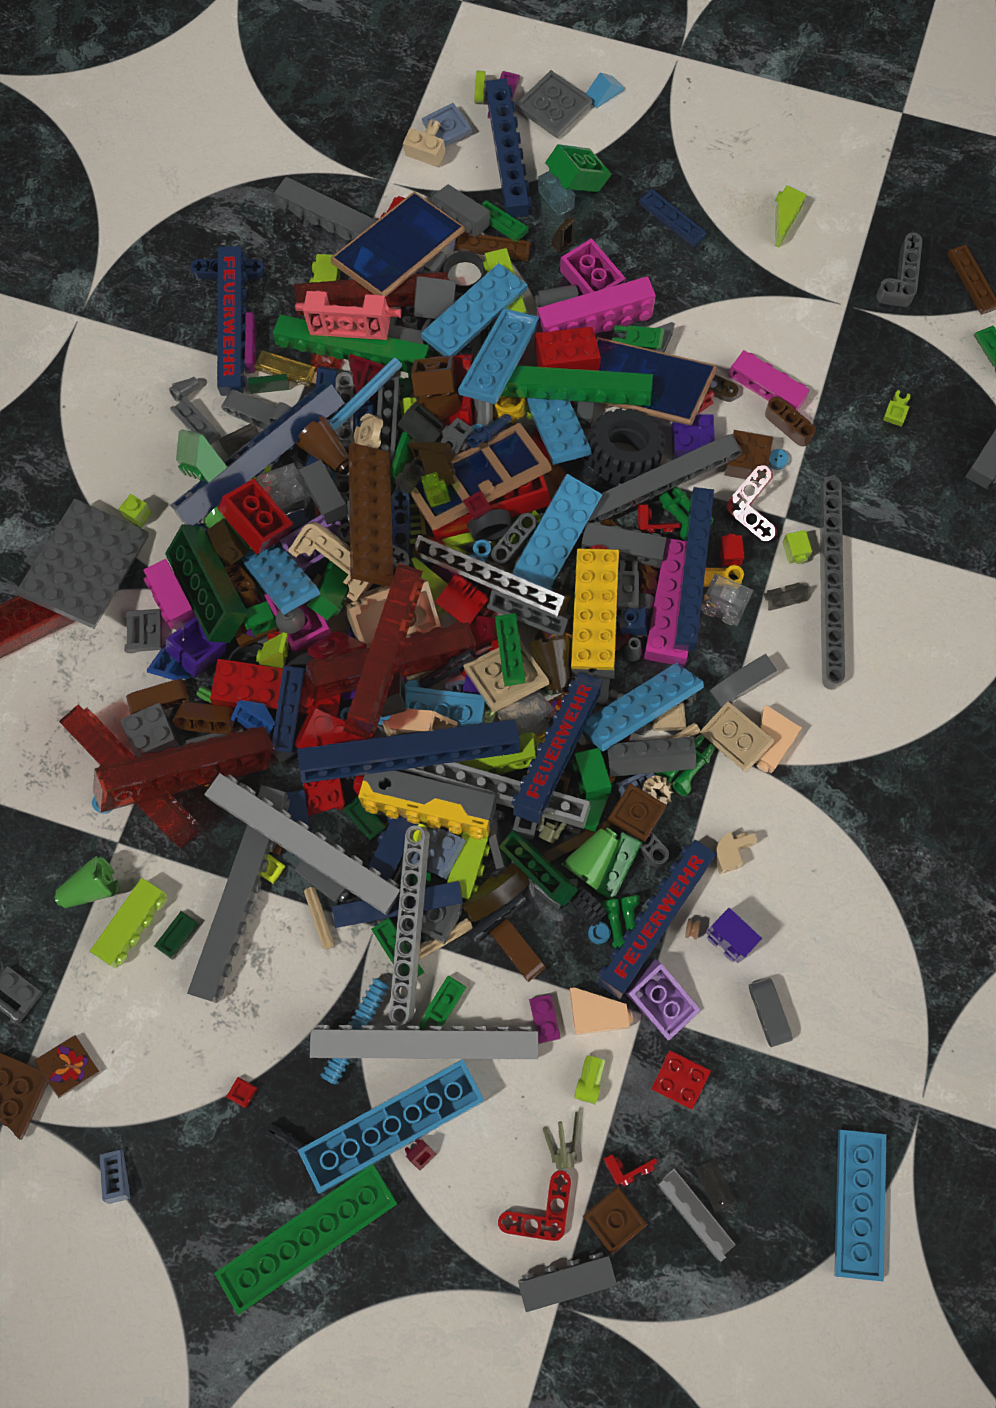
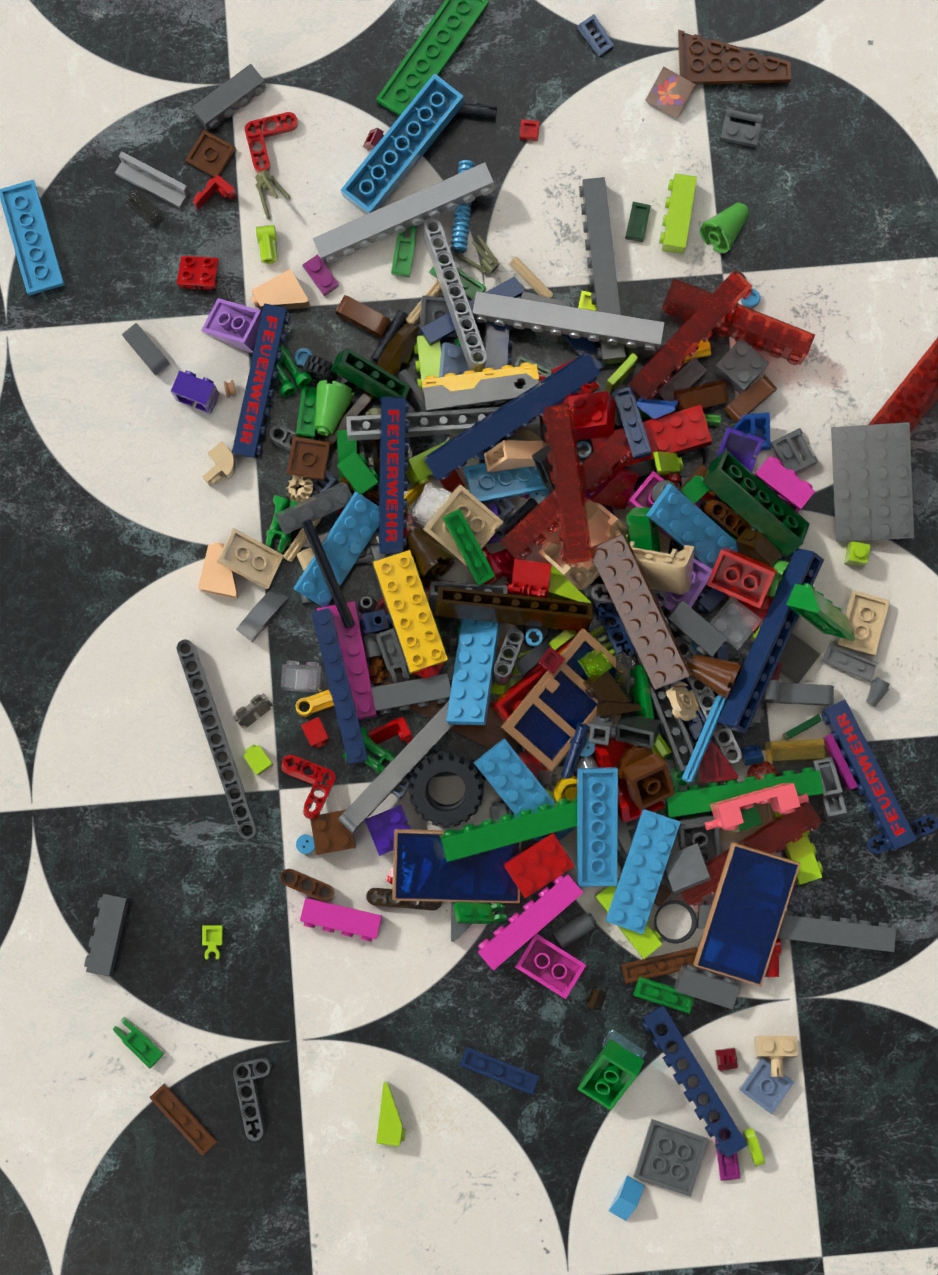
camera: 155 degrees right, 10 degrees up
(158, 452) = (866, 618): none -> tan plate
(273, 308) = (832, 799): none -> dark grey slope
(274, 770) = (621, 373): none -> lime tile
(356, 954) = (489, 262): none -> olive plant
(471, 158) = (726, 1058): none -> dark red tile
(663, 677) = (328, 573): none -> black axle

